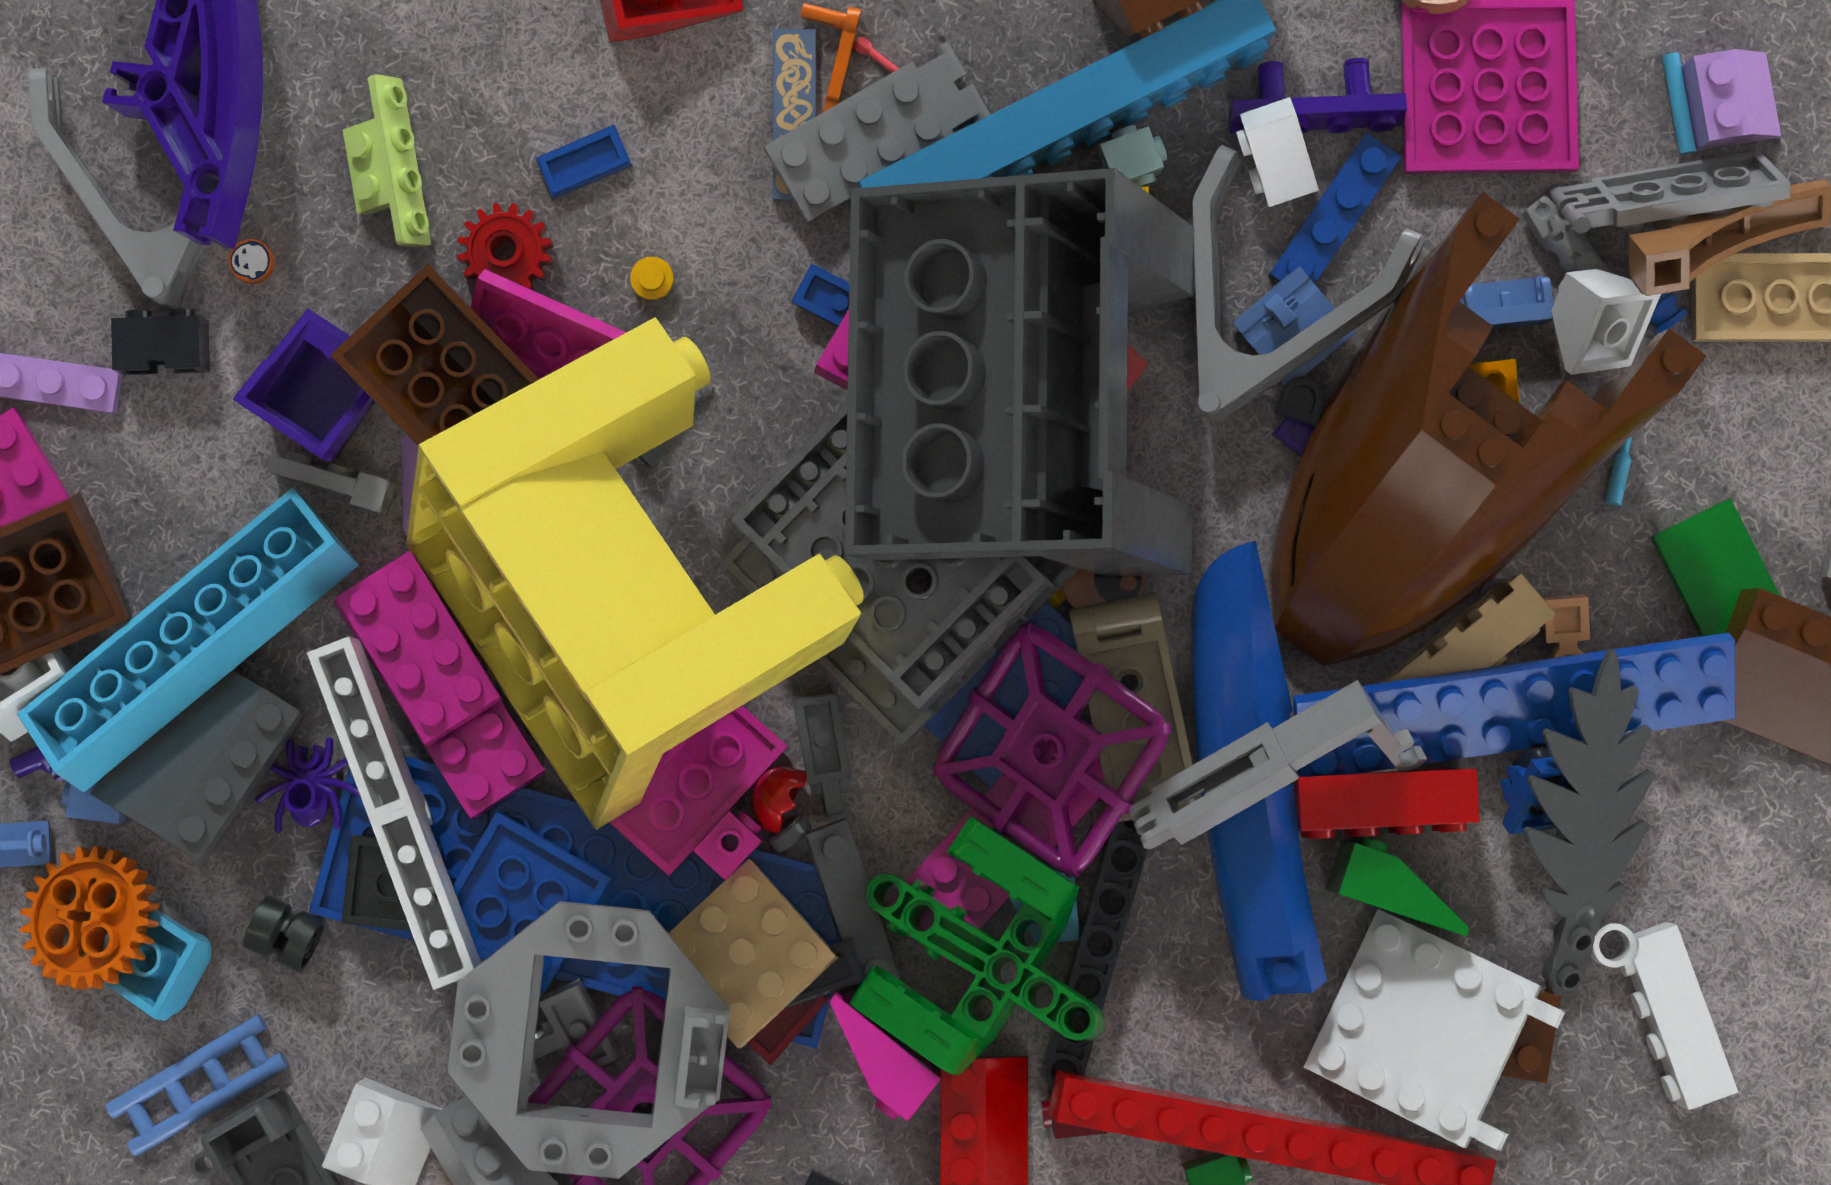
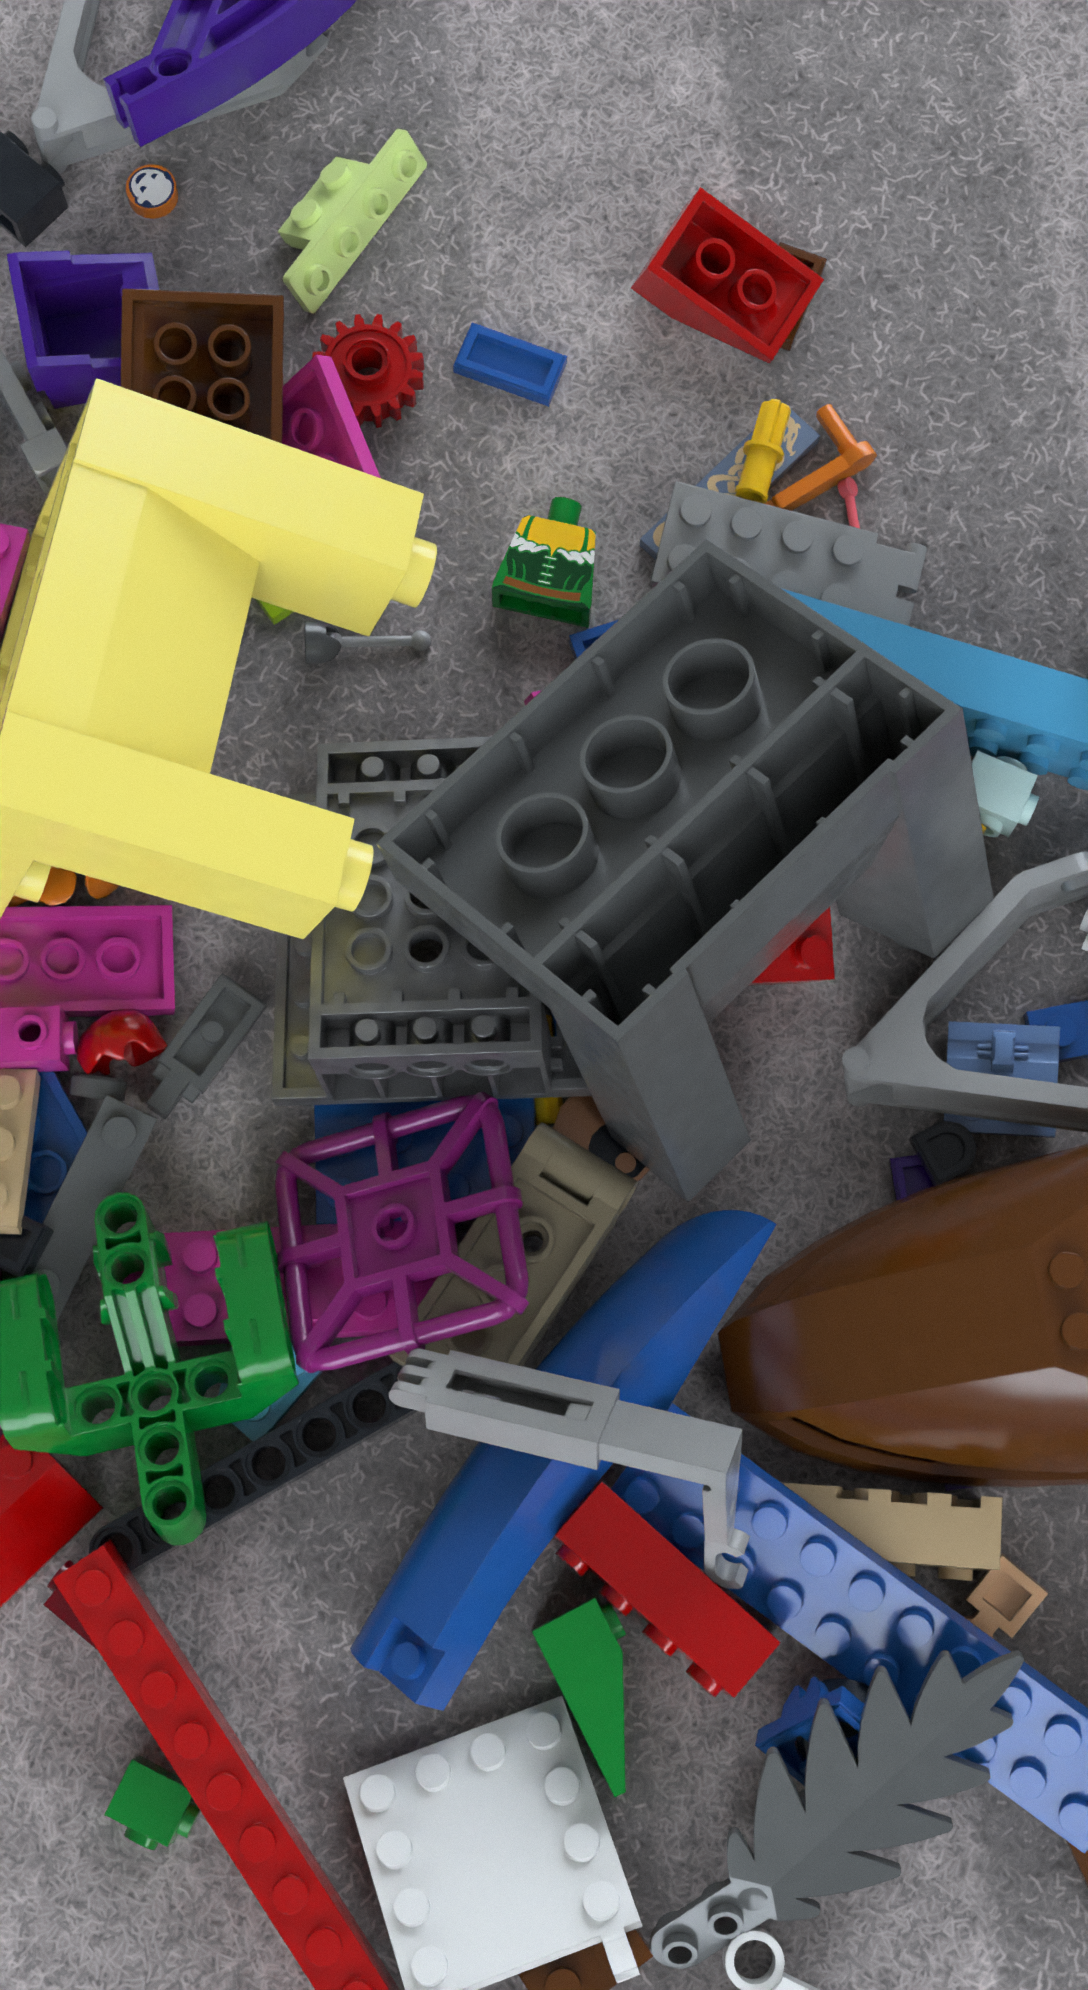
camera: 45 degrees right, 10 degrees down
(652, 278) = (469, 508): yellow plate -> none
(738, 268) = (549, 567): none -> torso
(795, 74) = (763, 451): none -> yellow axle

